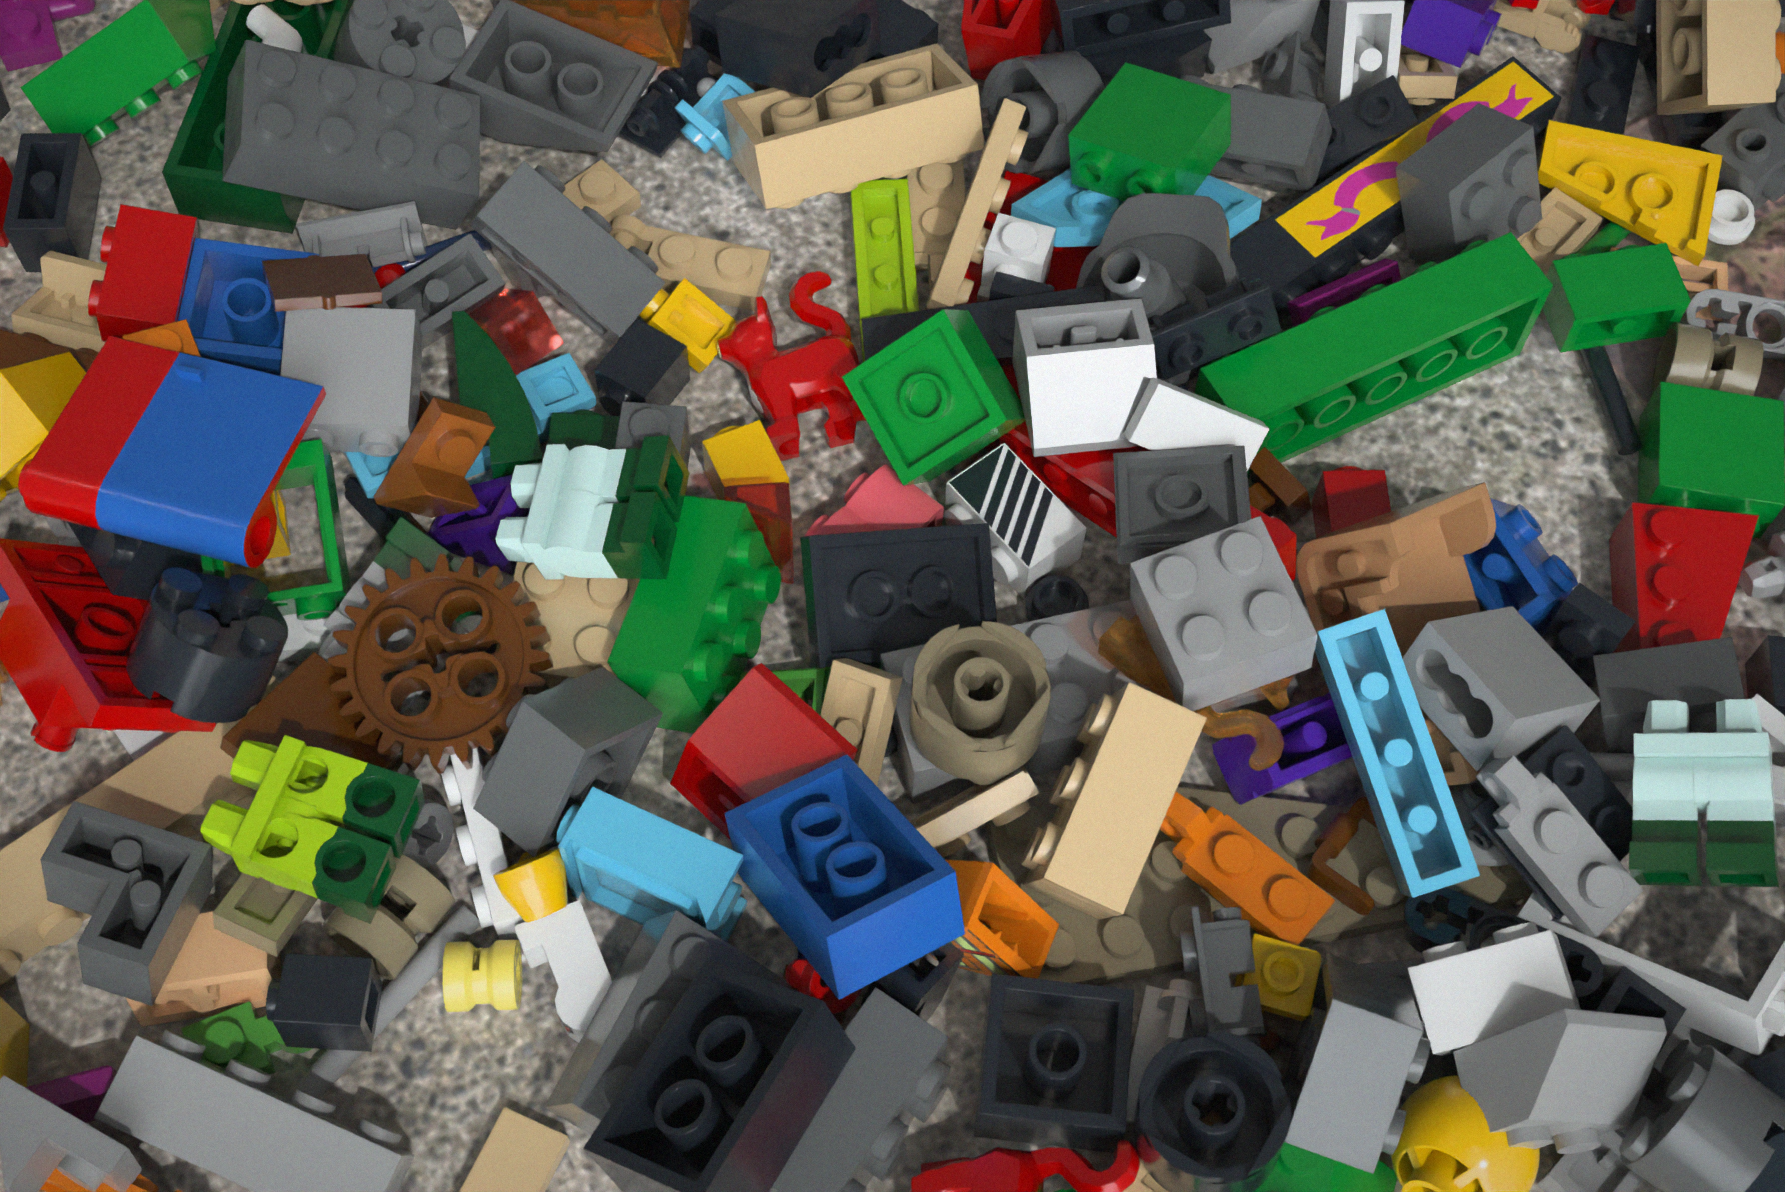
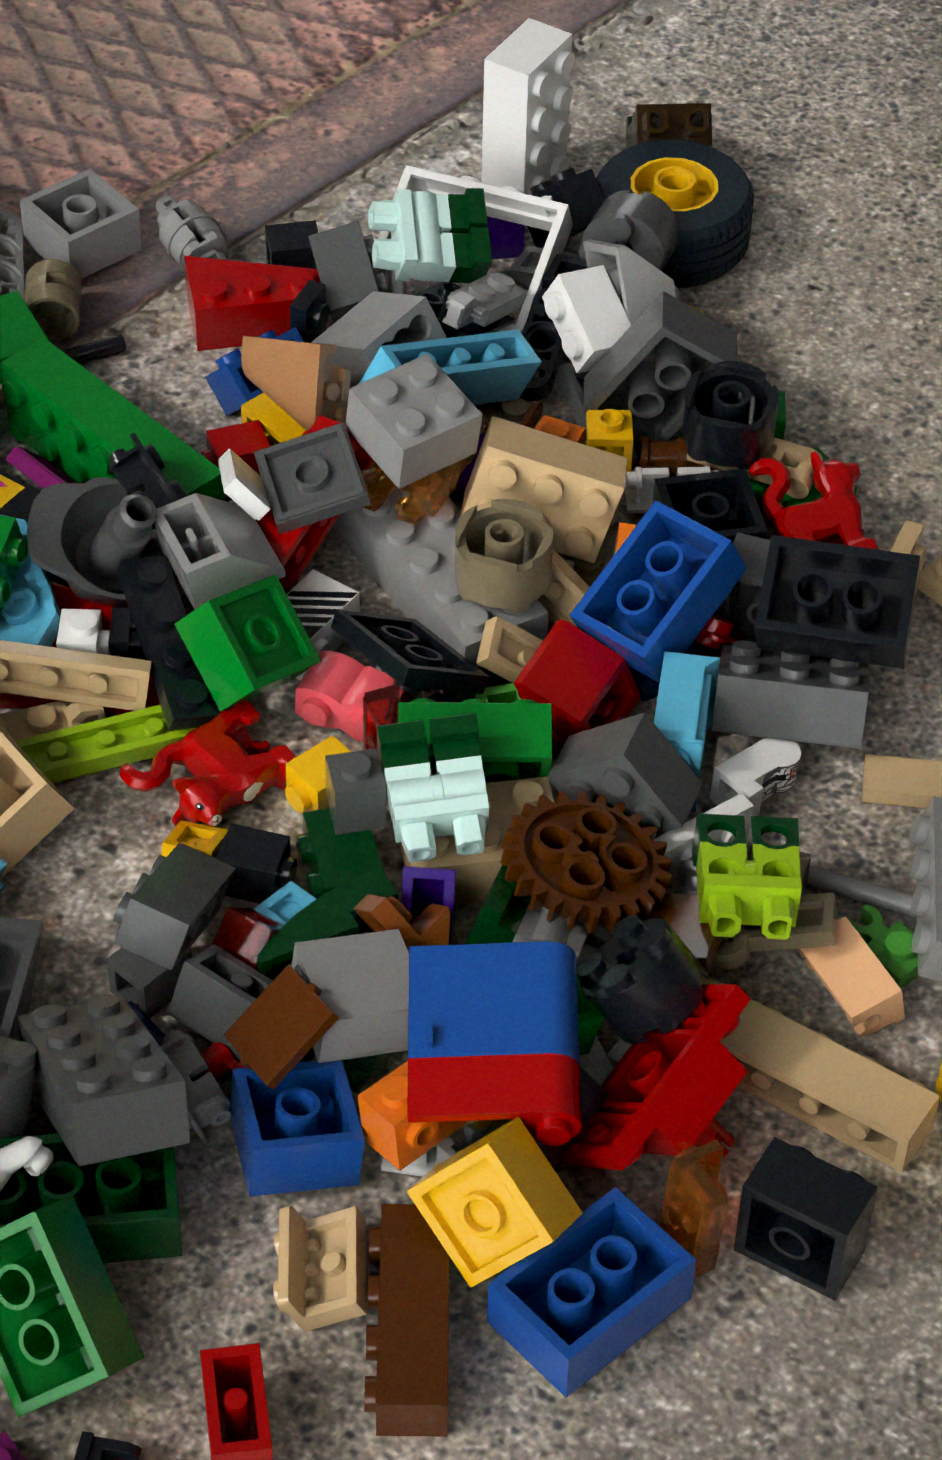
camera: 105 degrees left, 15 degrees down
(52, 198) = (217, 1316): black brick -> none
(139, 889) = (847, 966): dark grey brick -> none
(144, 271) = (301, 1180): red brick -> none
(325, 1002) = (853, 875): black brick -> none
(482, 975) = (785, 803): light yellow wheel -> none
(535, 885) = (721, 780): yellow bar -> none
(603, 191) = (70, 955): tan plate -> none
(719, 269) = (120, 863): tan plate -> none
(1055, 597) = (372, 593): black plate -> none
(1216, 952) = (647, 442): dark grey hinge -> none
(1713, 452) = (131, 295): green piece -> none

